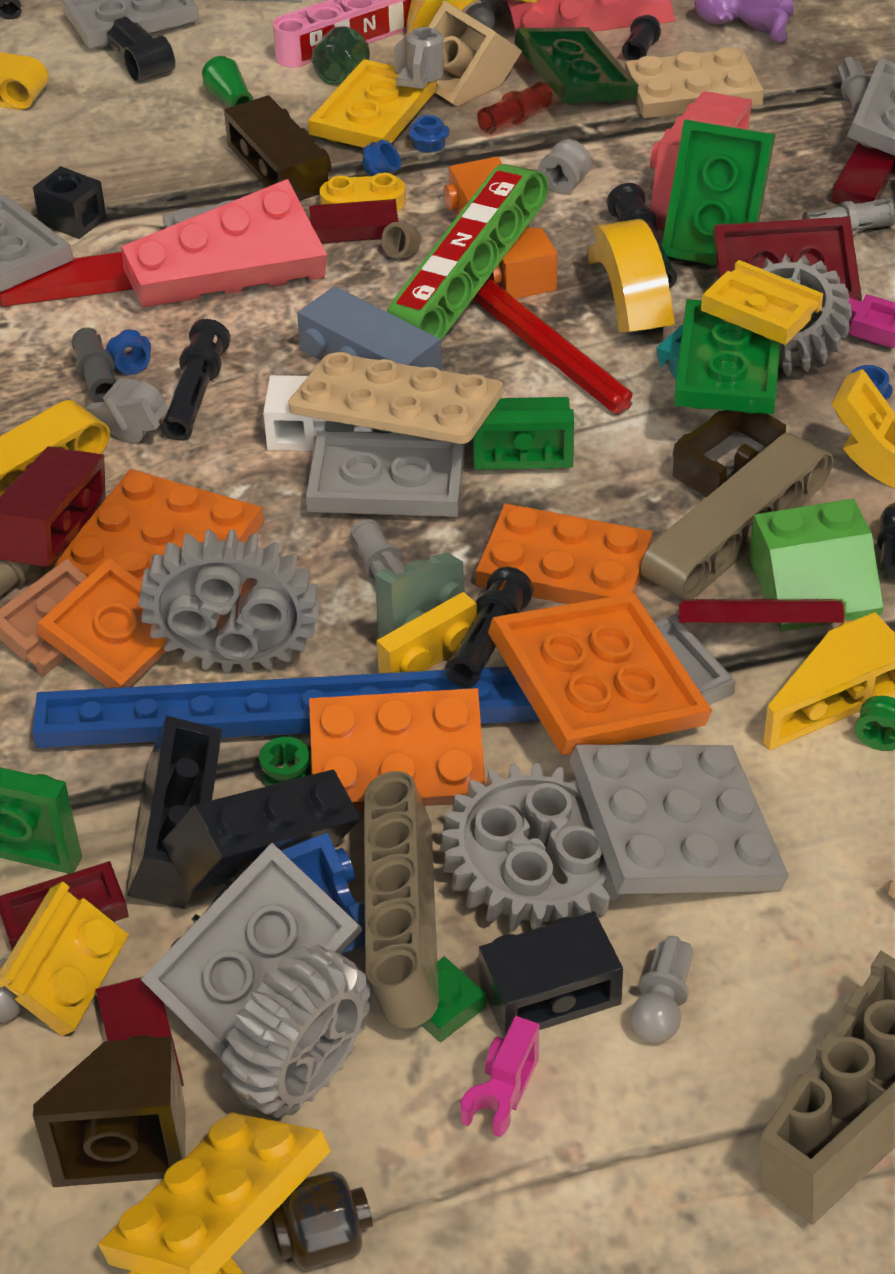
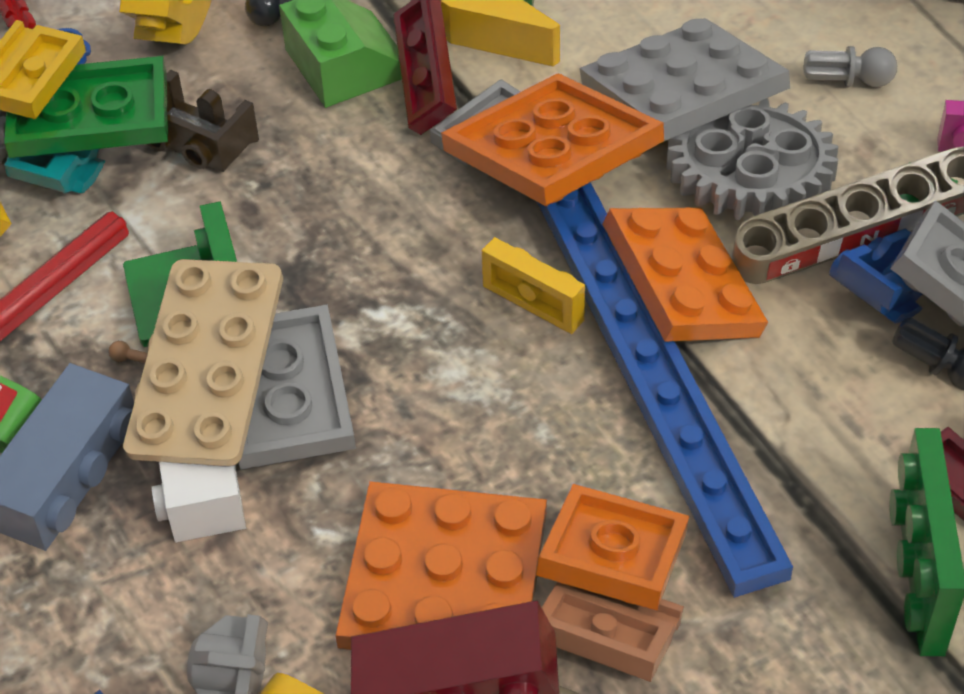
camera: 105 degrees left, 5 degrees up
(177, 778) = (845, 399): black brick -> none
(199, 365) = (117, 626): black pin -> none
(204, 579) = (598, 395): light grey gear -> none
(229, 833) = (861, 301): black brick -> none
(284, 750) = (720, 348): green bush -> none
(375, 549) = (421, 357): light grey axle -> none
(416, 590) = (490, 293): sand green wing -> none
(476, 644) = (468, 238): black pin -> none
(551, 973) = (876, 121): black brick -> none
(565, 554) = (369, 226): orange plate -> none
(721, 525) = (294, 105): dark tan beam -> none

